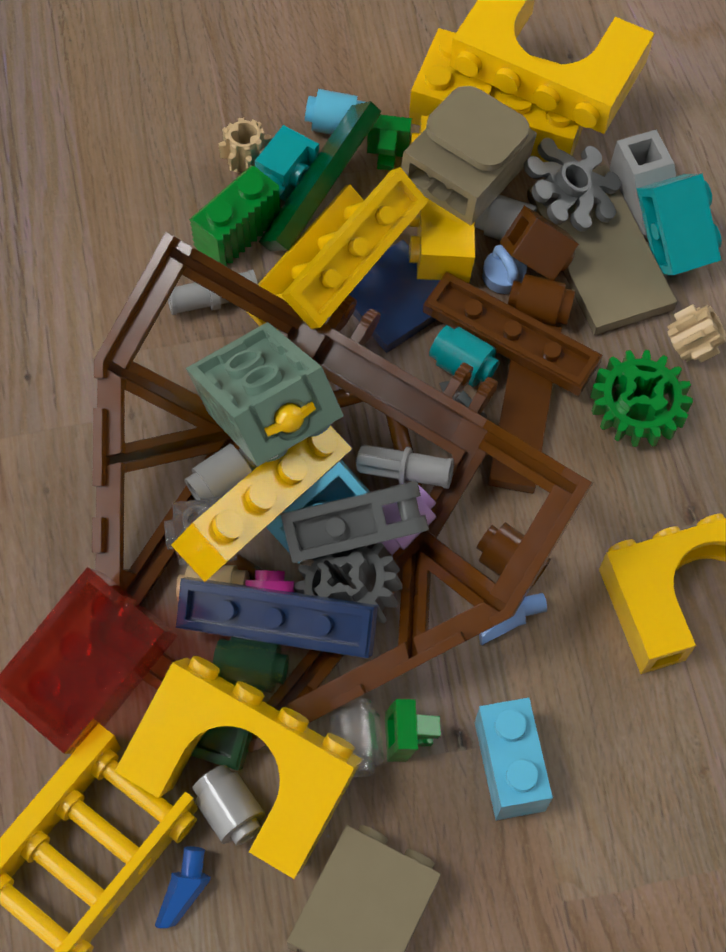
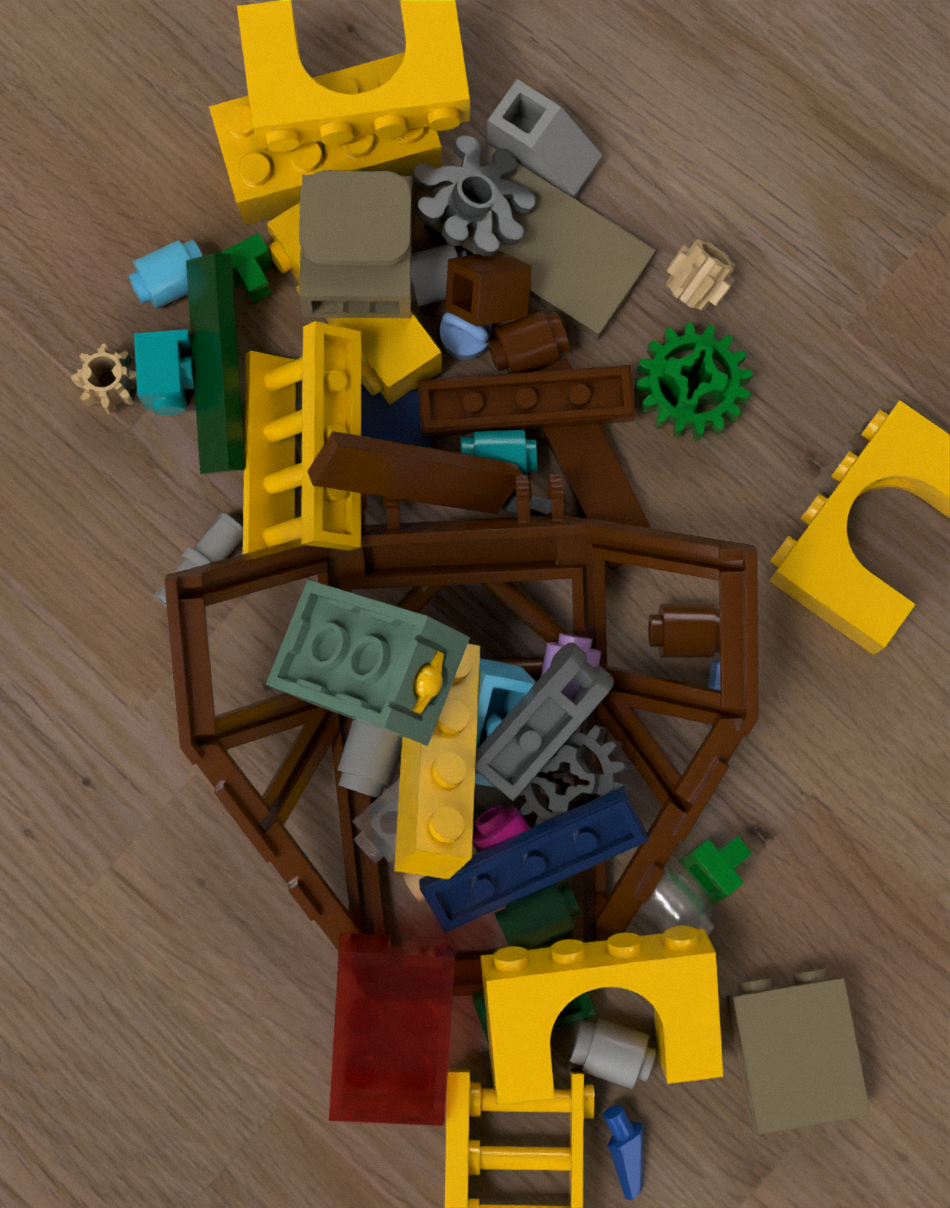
camera: 35 degrees left, 15 degrees up
(236, 216) = (162, 466): green brick -> none
(393, 306) = (413, 473): none -> reddish brown tile
(405, 465) = (537, 623): light grey axle -> none
(512, 759) = (827, 825): medium azure brick -> none
(680, 223) = (607, 167): teal brick -> none

